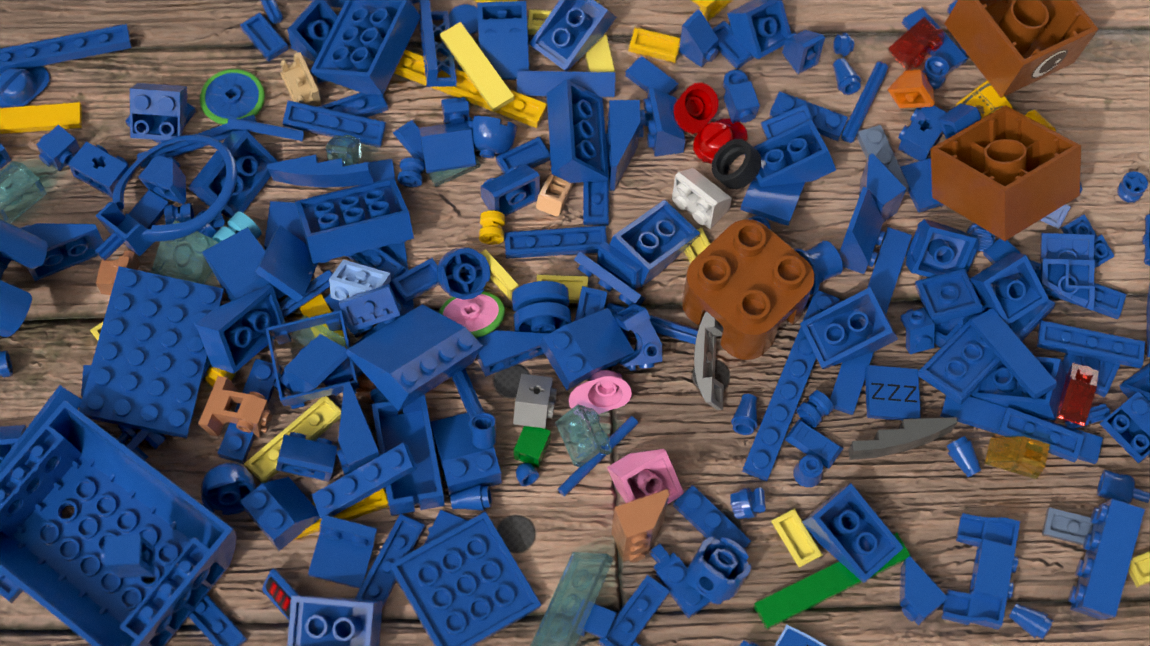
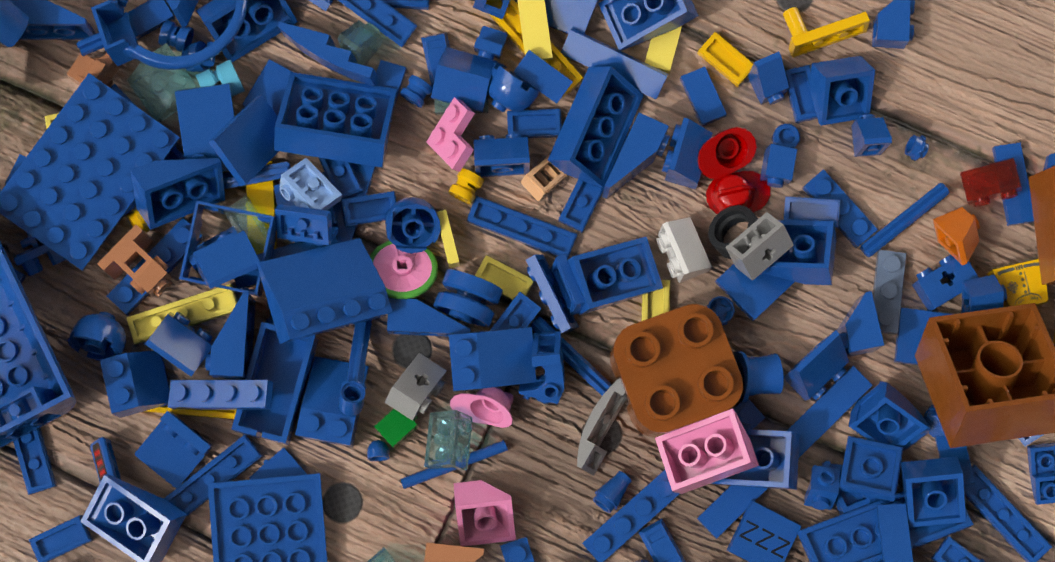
camera: 25 degrees right, 15 degrees up
(456, 193) = (447, 138): none -> bright pink plate
(472, 498) = (319, 453): blue cone -> none
(517, 112) = (543, 76): none -> blue tile
(763, 158) = (759, 246): none -> light grey brick
(809, 336) = (706, 452): none -> bright pink slope
(815, 409) = (687, 518): blue wheel -> none
(846, 77) = (899, 185): blue cone -> none
(936, 70) = (996, 218): blue wheel -> none
(1069, 266) = (1009, 493): blue slope -> none

